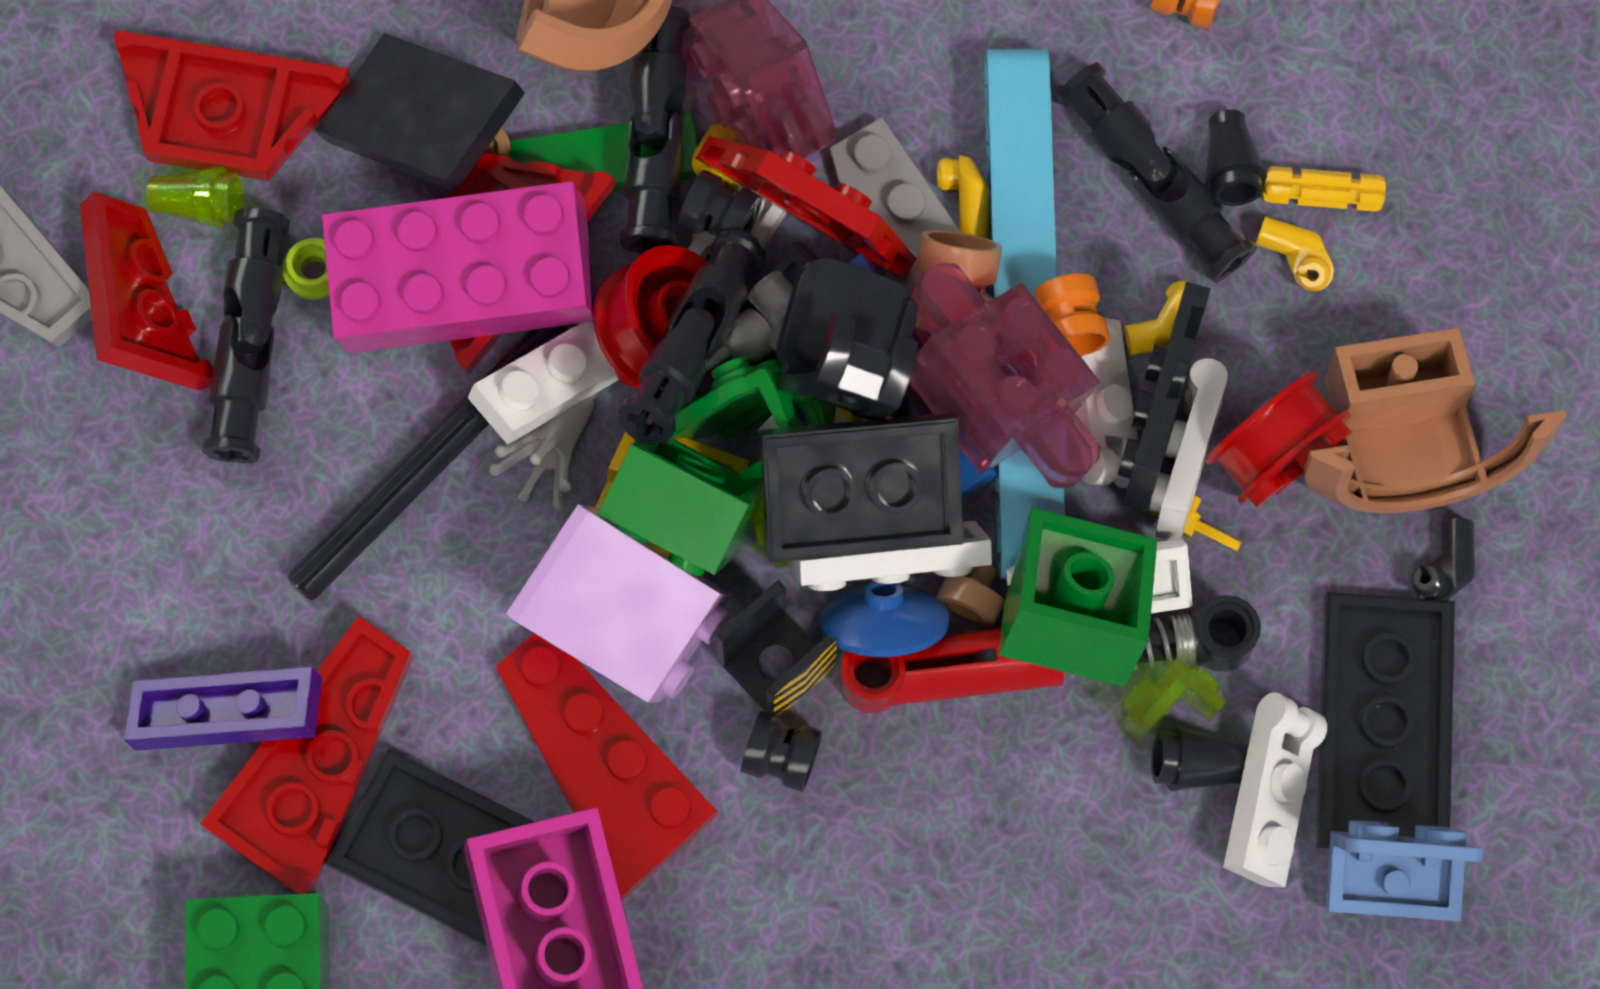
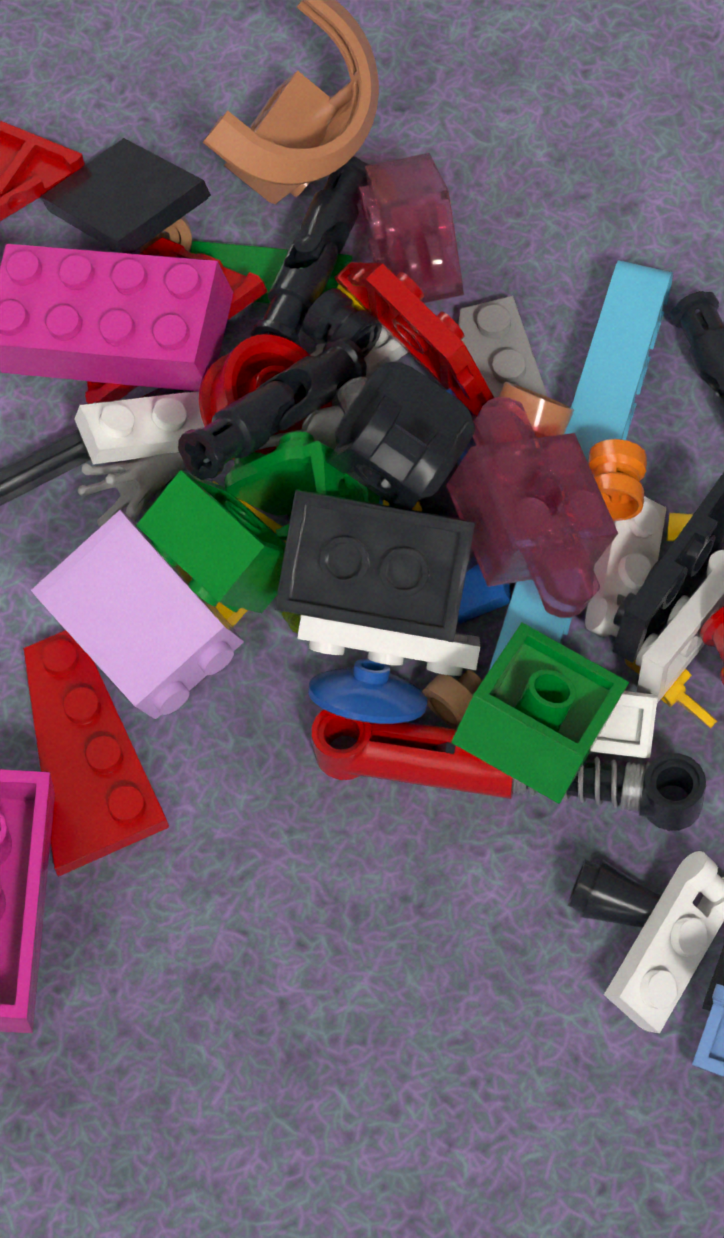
camera: 25 degrees right, 10 degrees down
(766, 625) = (255, 672): black piece -> none
(781, 751) = (240, 784): black wheel -> none
(973, 193) = (569, 364): yellow arm -> none
(1152, 701) = (591, 832): clear neon green bracket -> none

